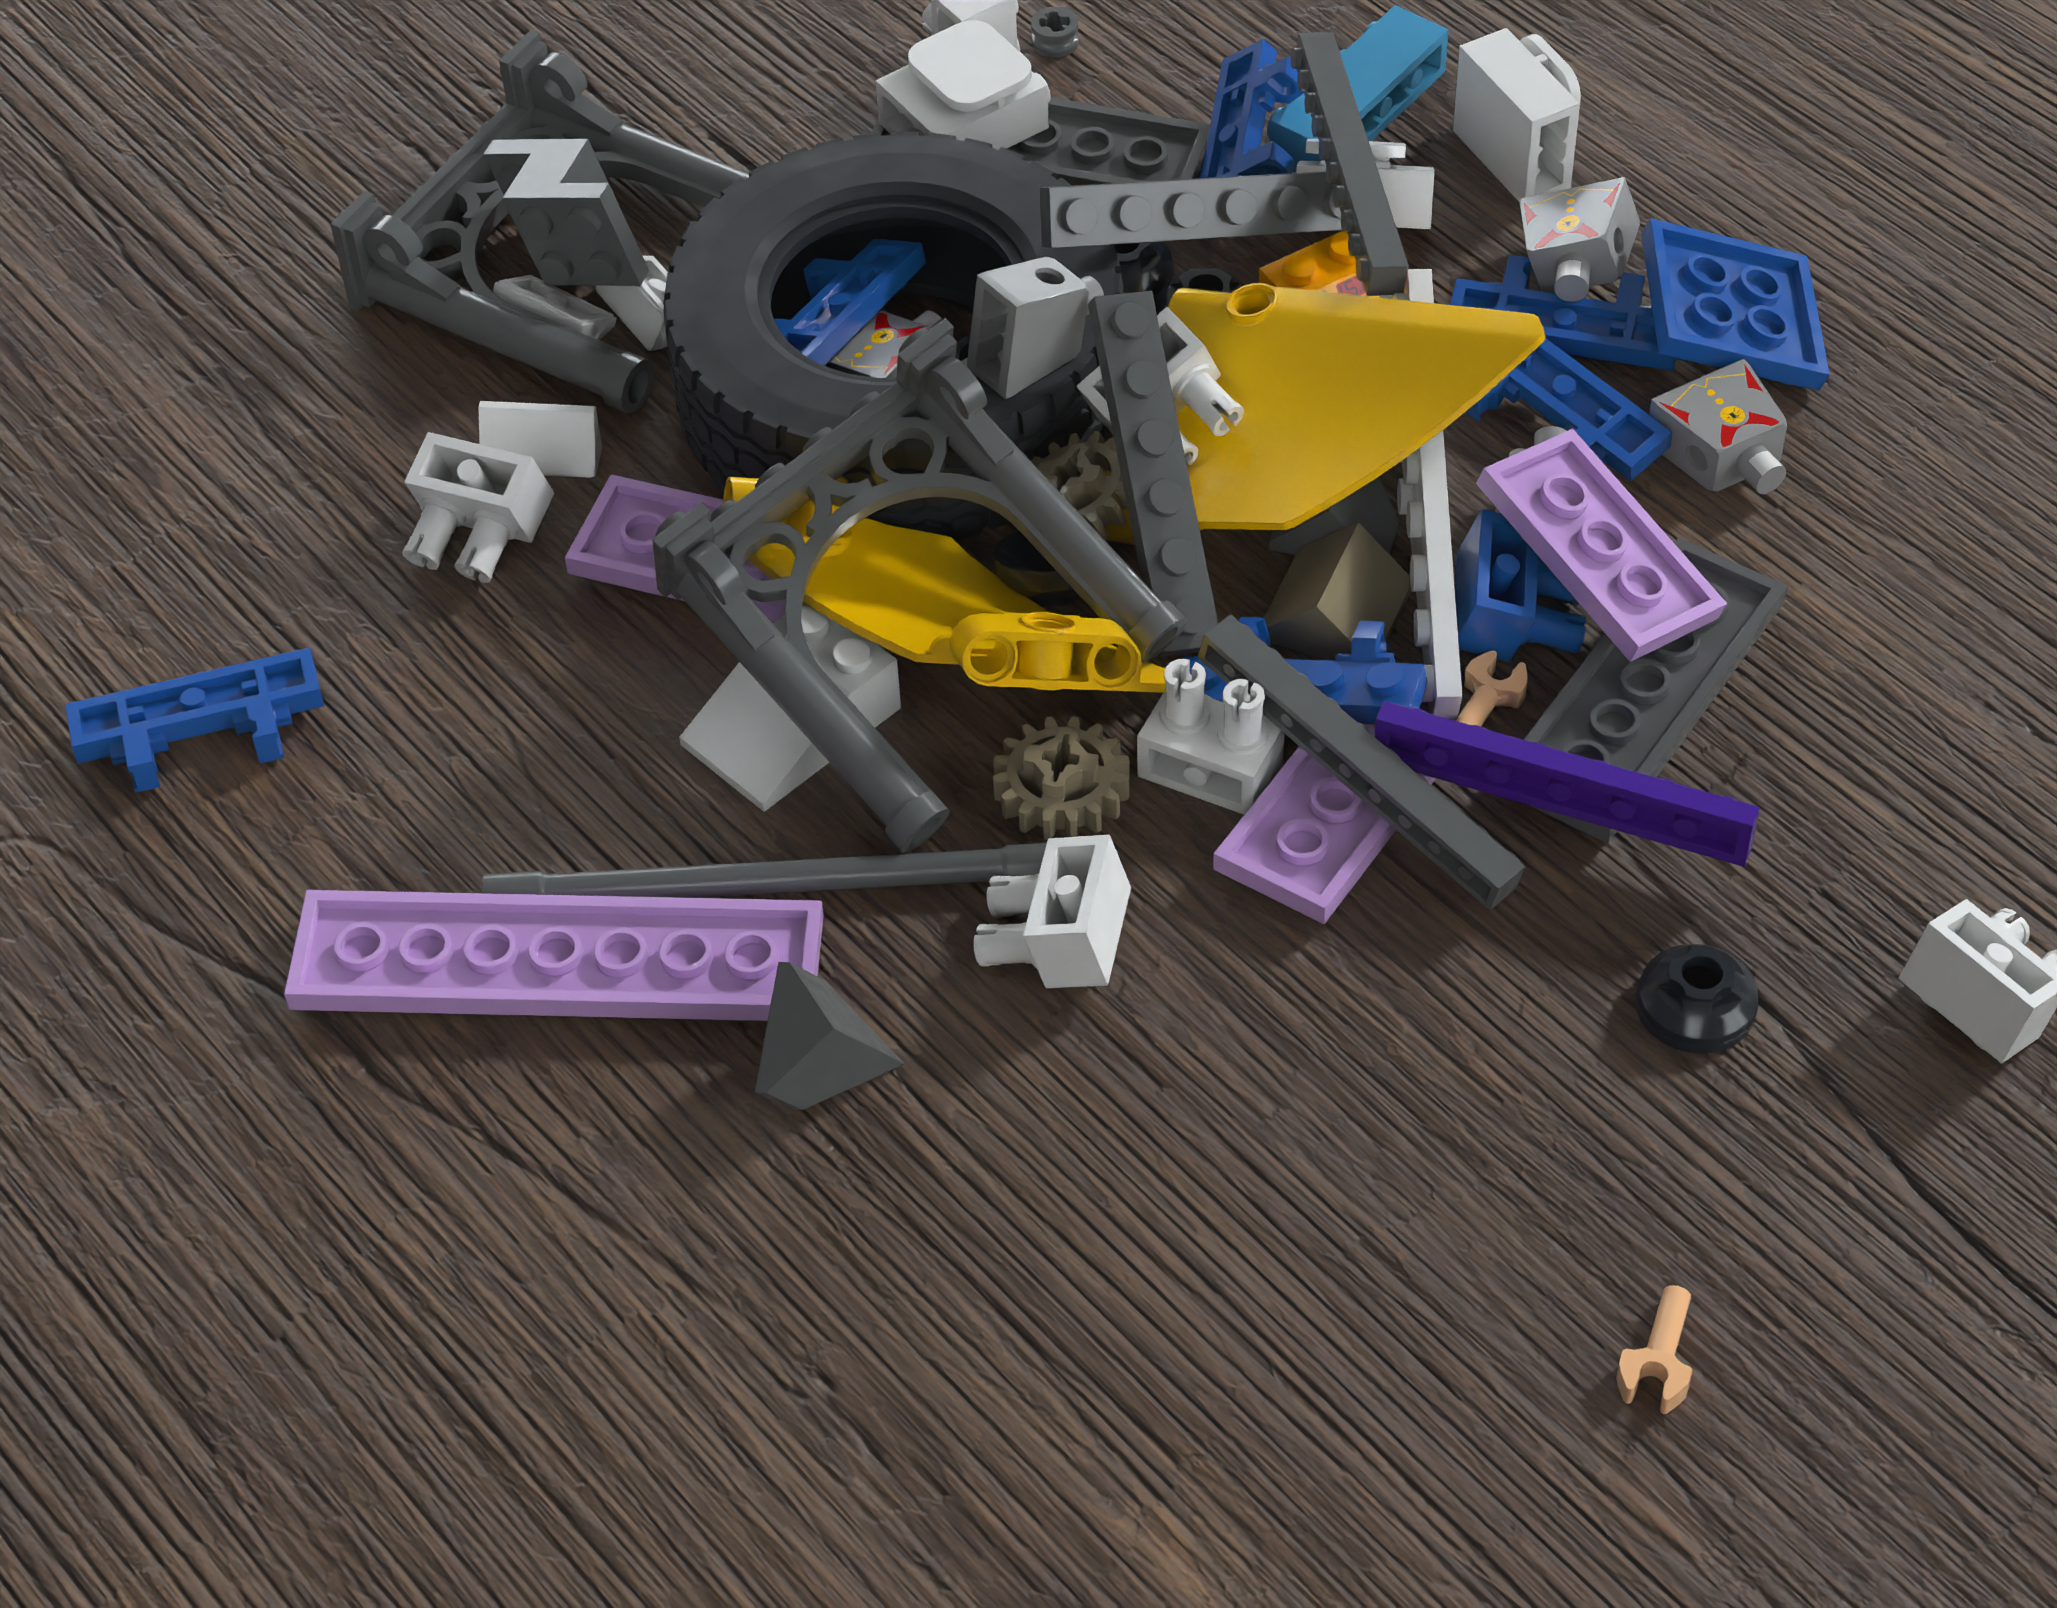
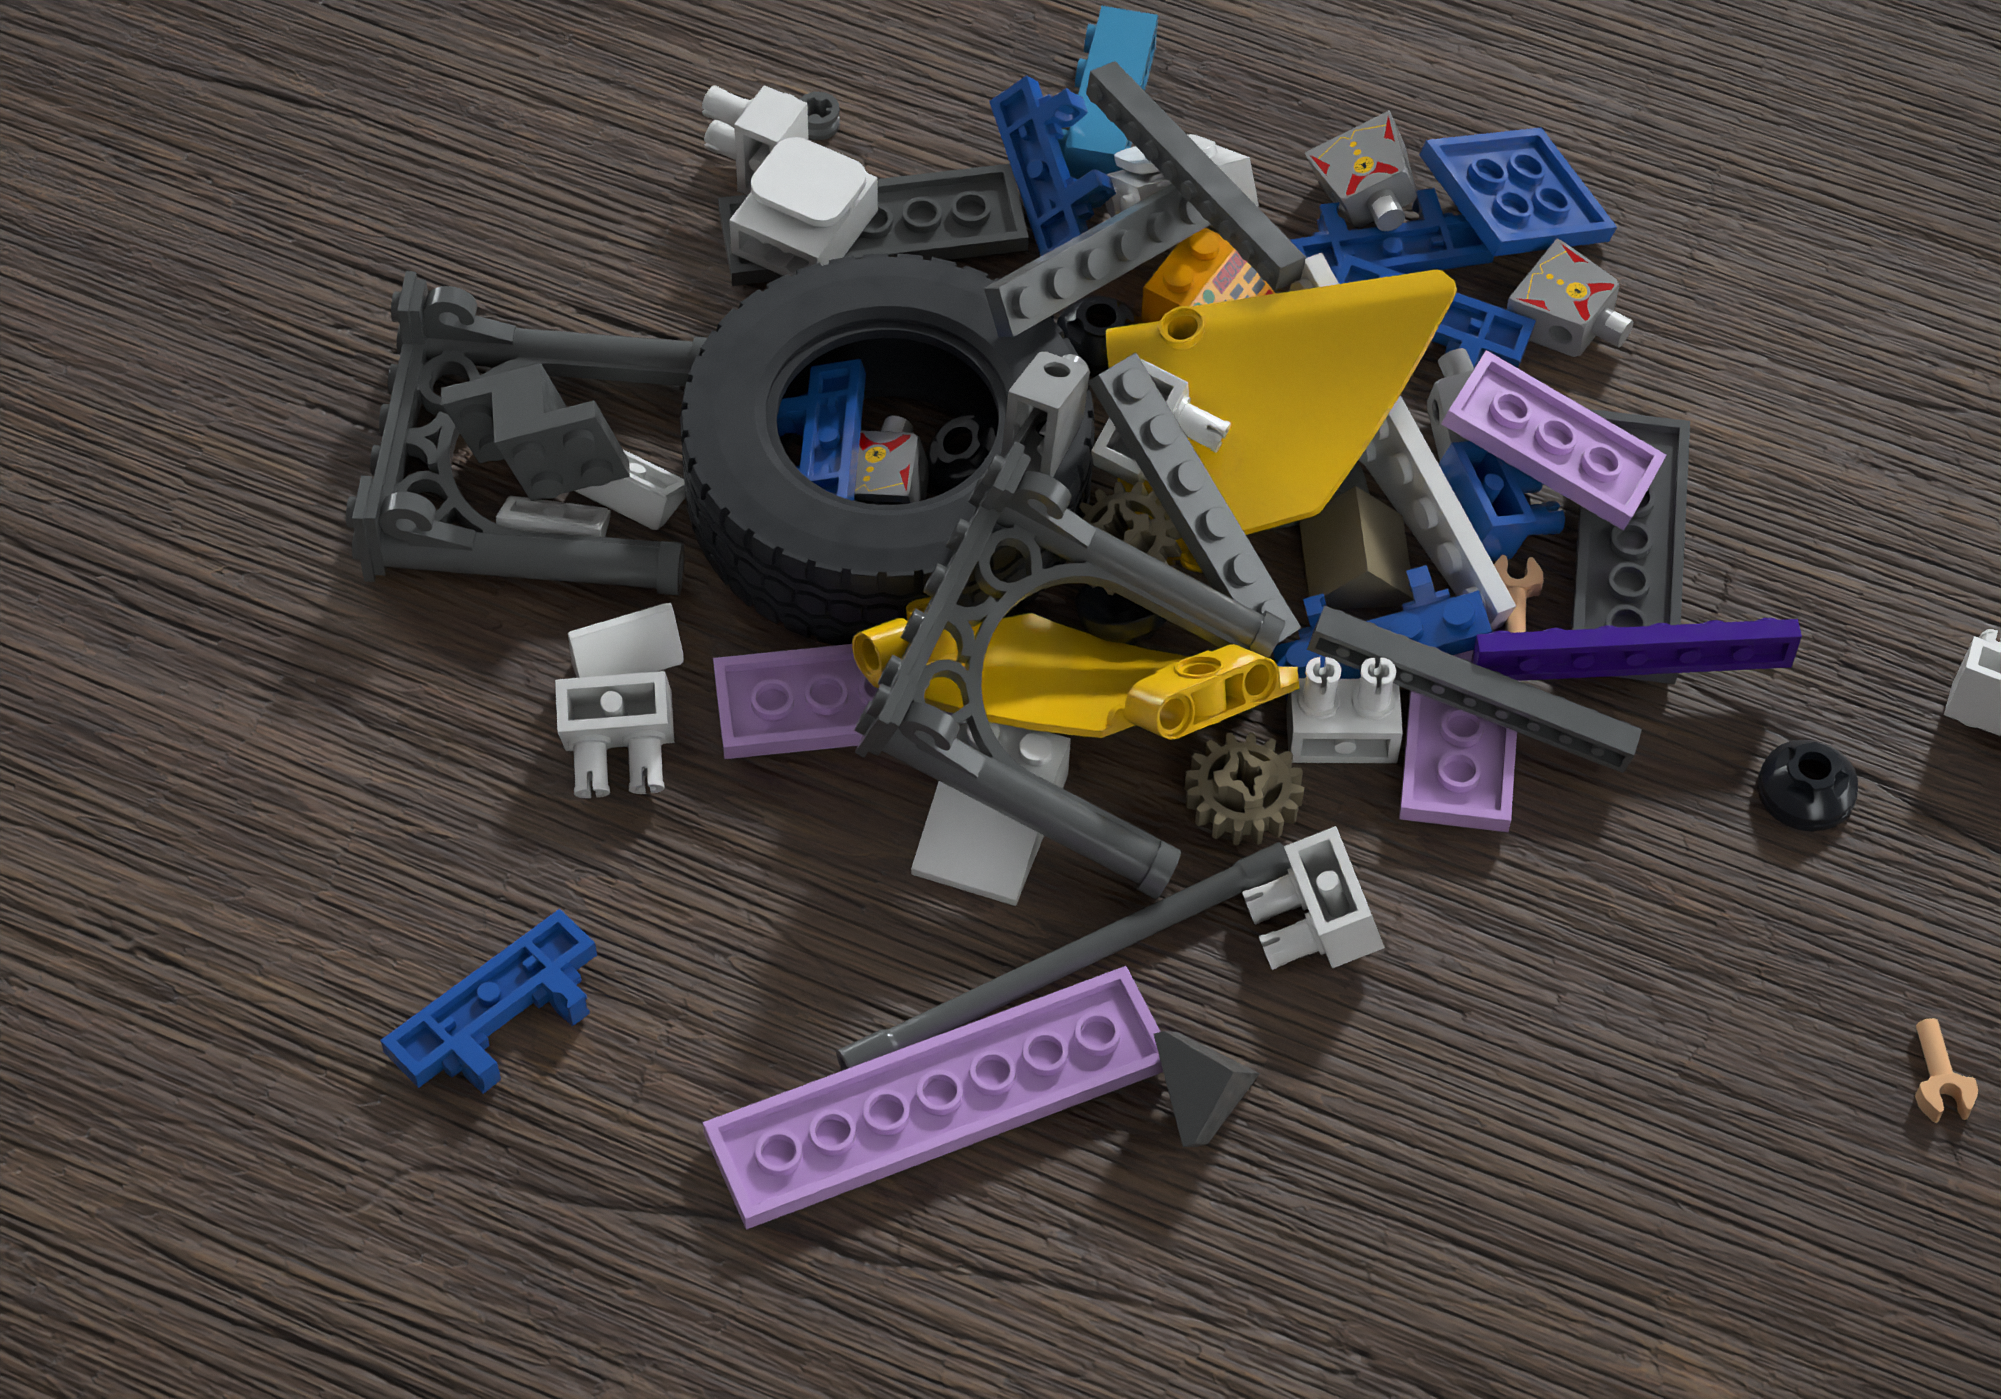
camera: 30 degrees left, 5 degrees up
(1518, 111) = (1259, 74): white brick -> none

